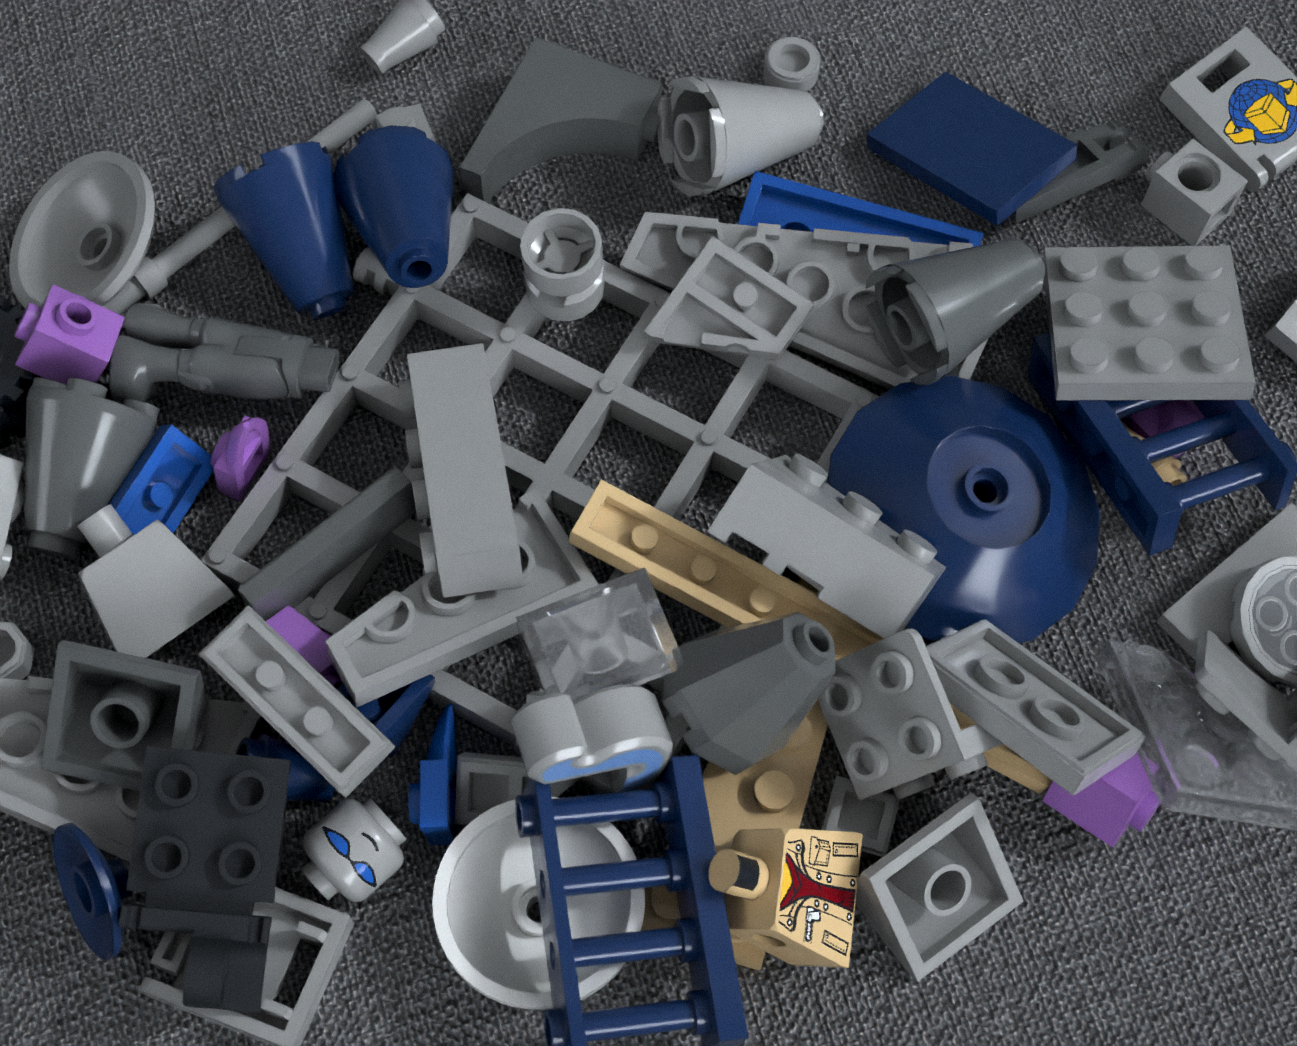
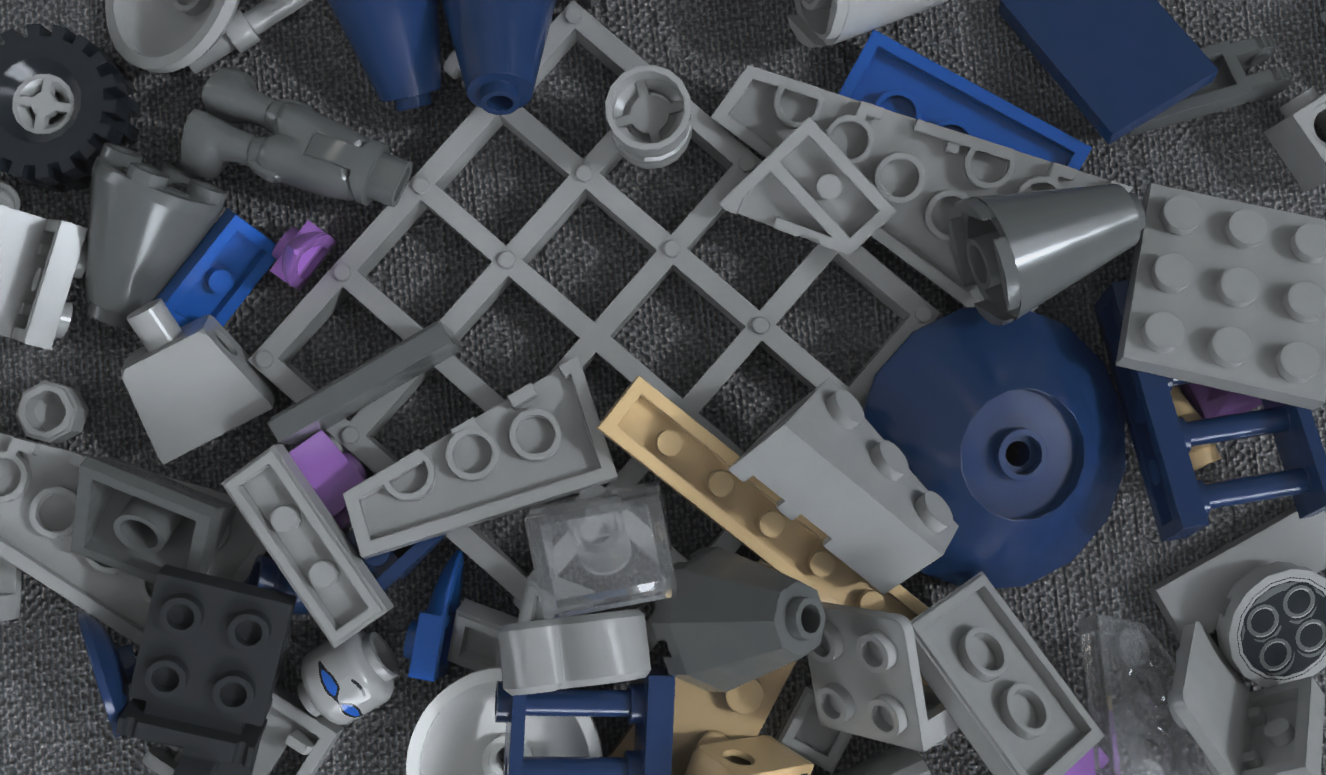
camera: 10 degrees right, 20 degrees up
(67, 337) = (142, 103): medium lavender brick -> none
(463, 469) = (504, 334): light grey brick -> none

